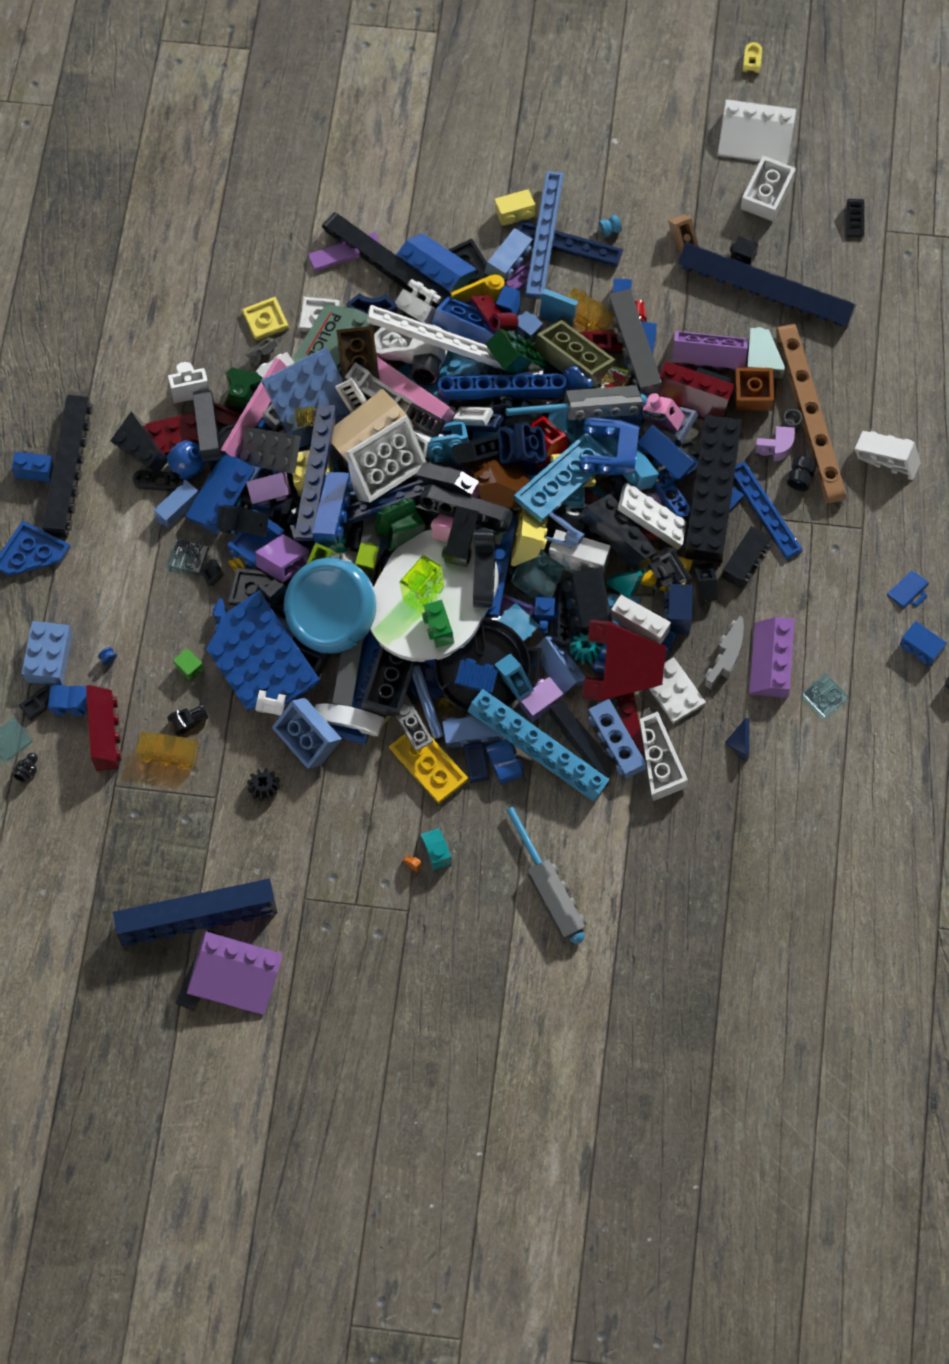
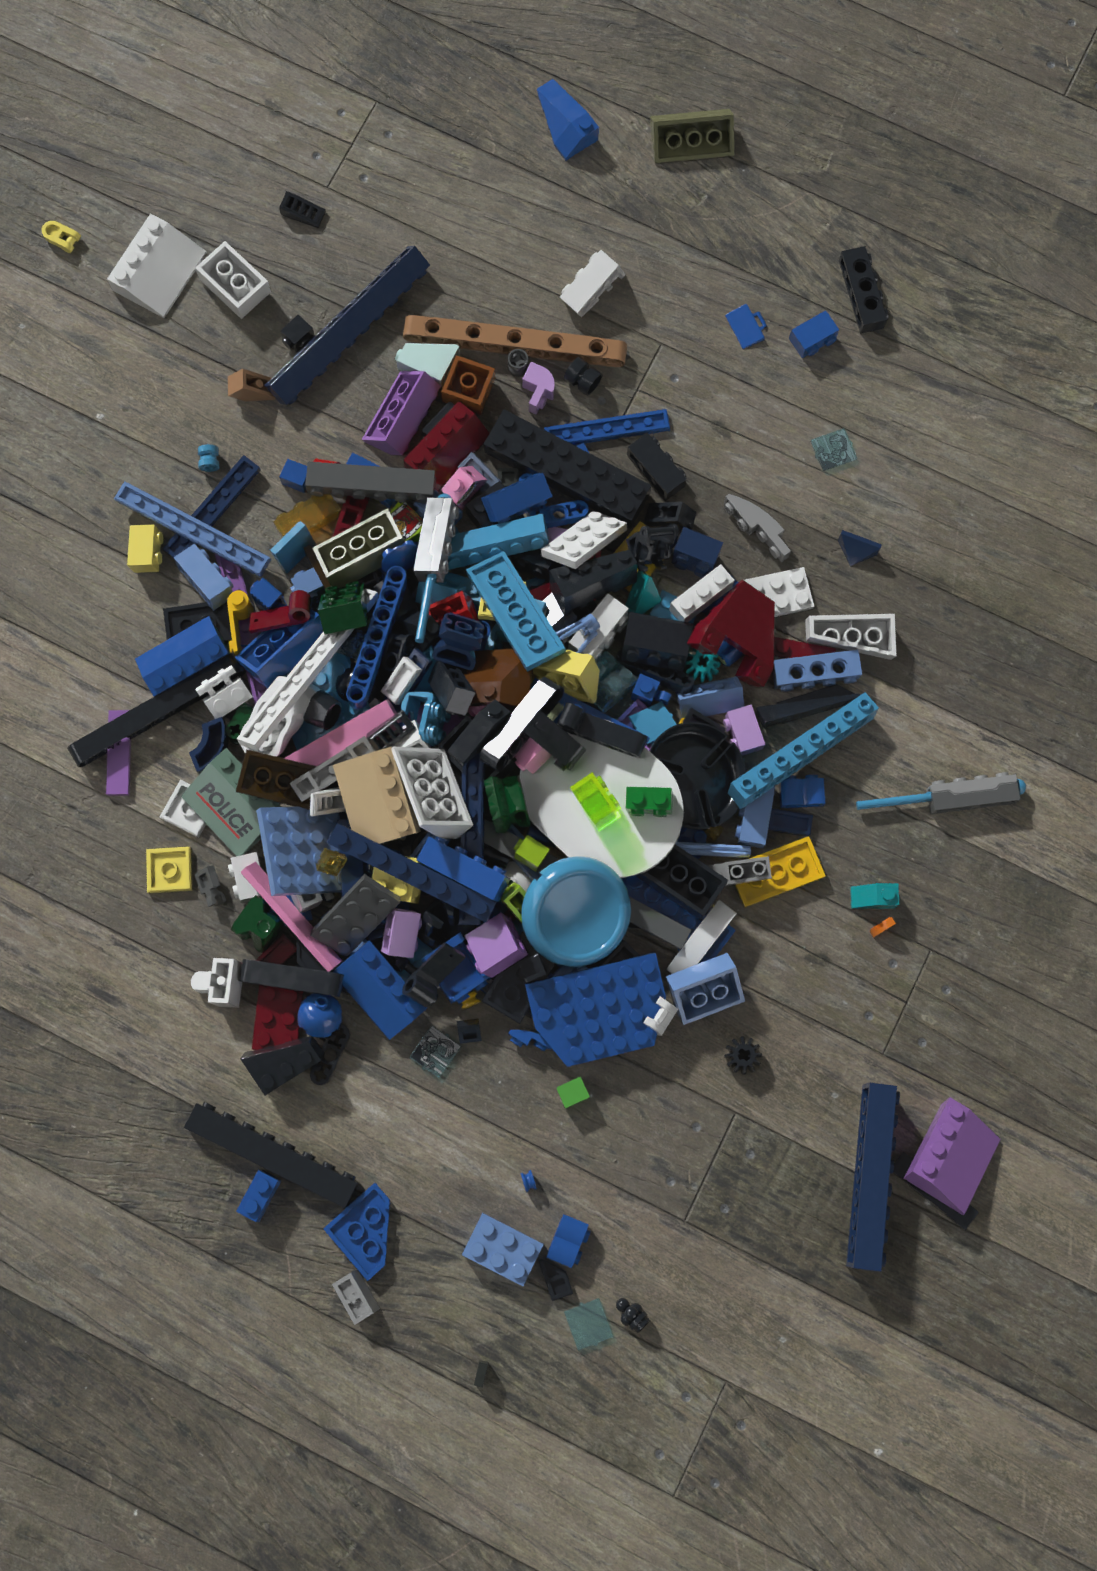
camera: 75 degrees left, 10 degrees up
(102, 728) = (619, 1212): dark red slope -> none
(167, 750) = (667, 1148): clear yellow brick -> none
(175, 504) = (369, 1045): medium blue window -> none
(186, 719) = (636, 1115): black connector -> none
(476, 676) = (710, 785): blue brick -> none
(514, 677) = (721, 746): dark azure slope -> none
(627, 447) = (506, 533): blue connector -> none
(772, 657) = (778, 483): medium lavender slope -> none

